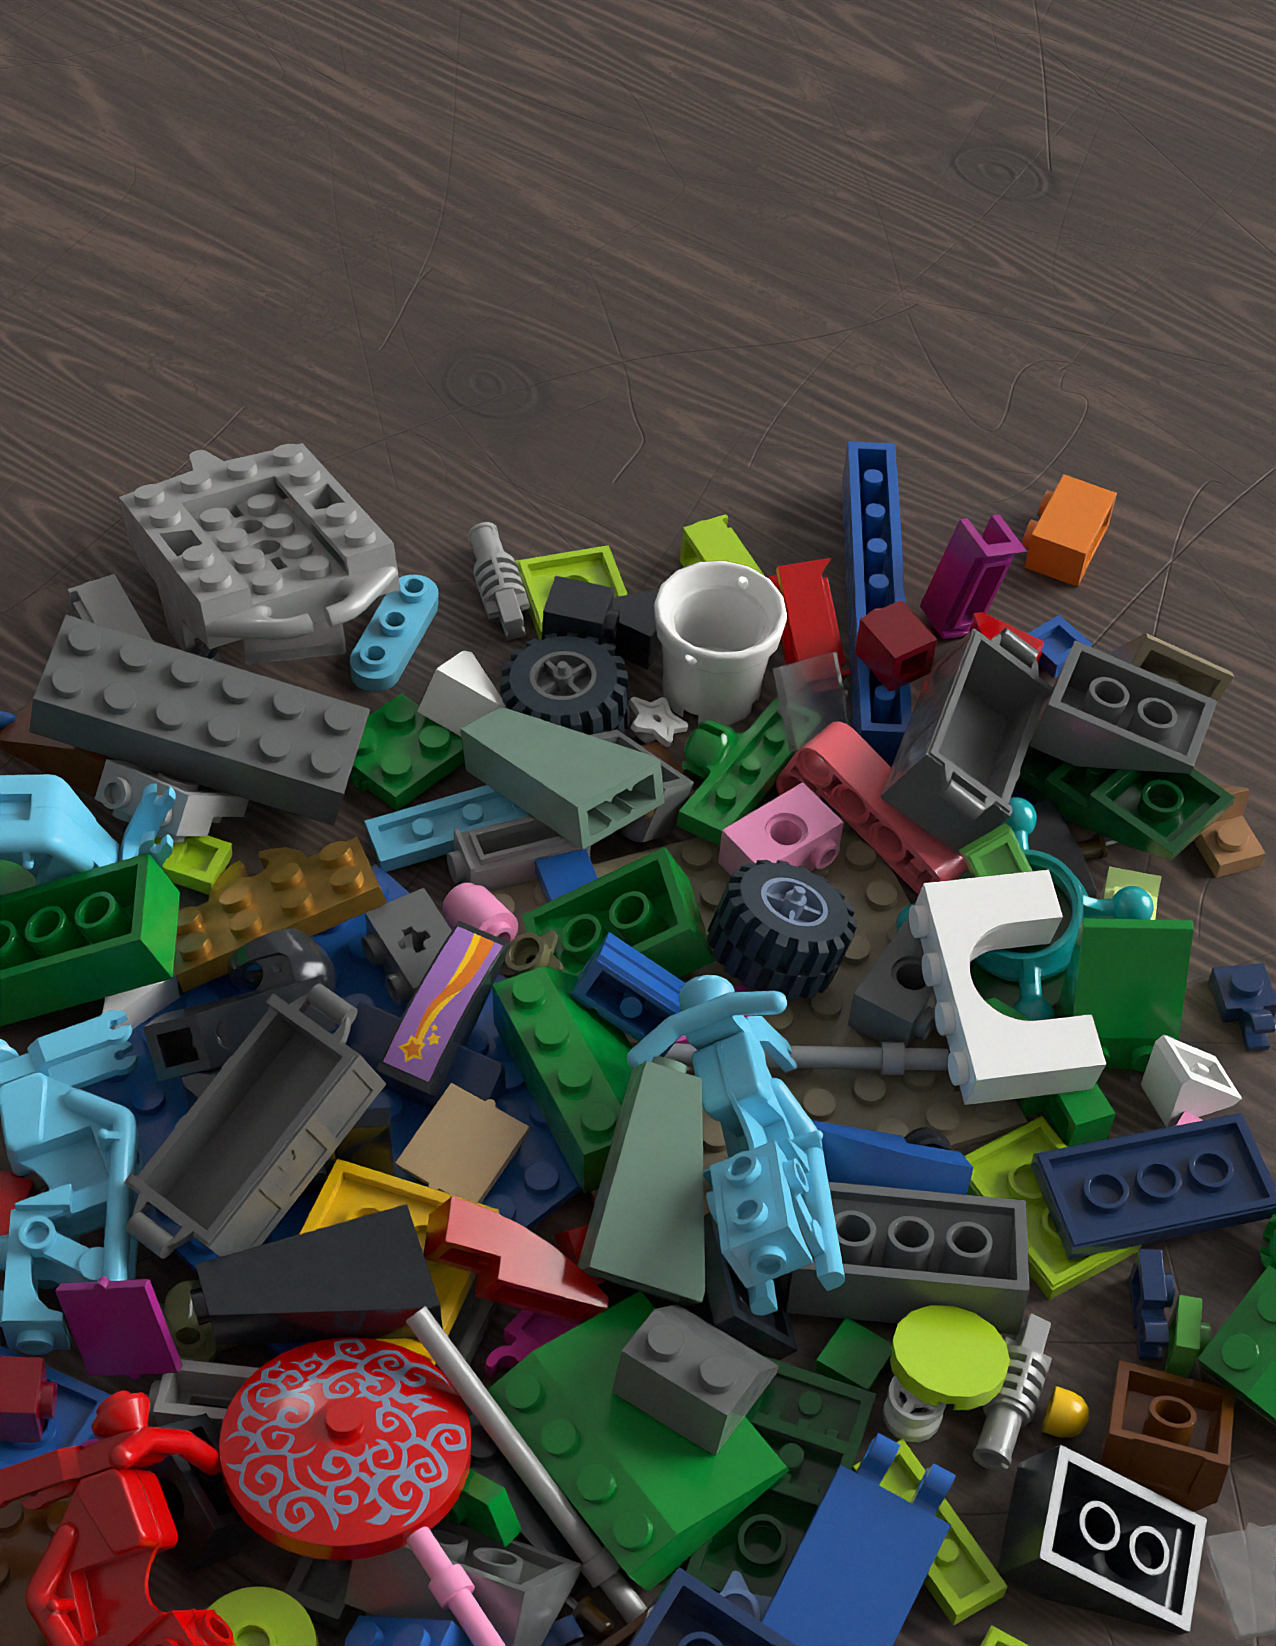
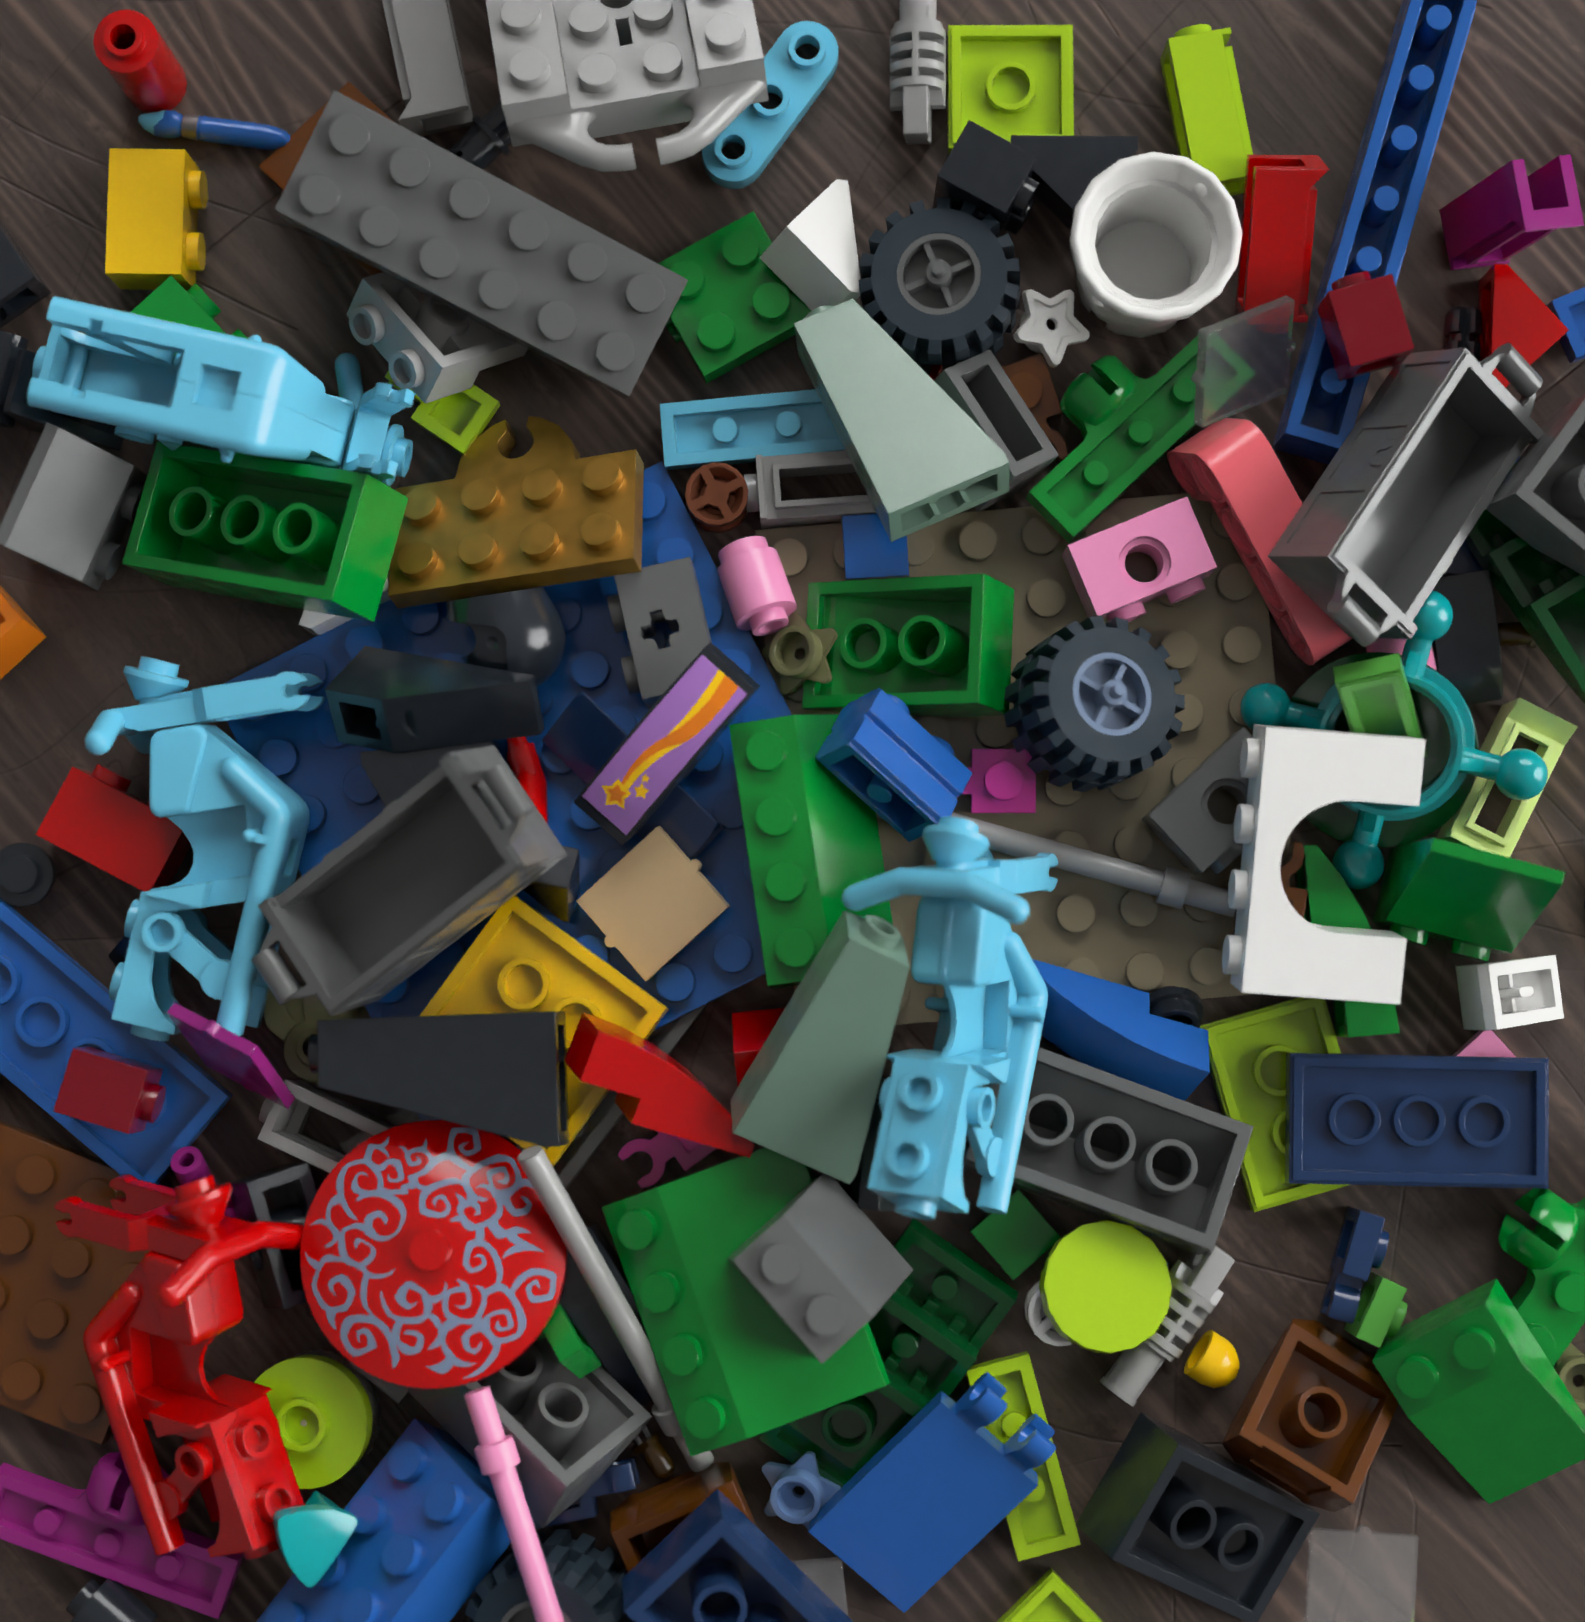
camera: 25 degrees right, 35 degrees up
(434, 867) = (712, 486): none -> copper wheel

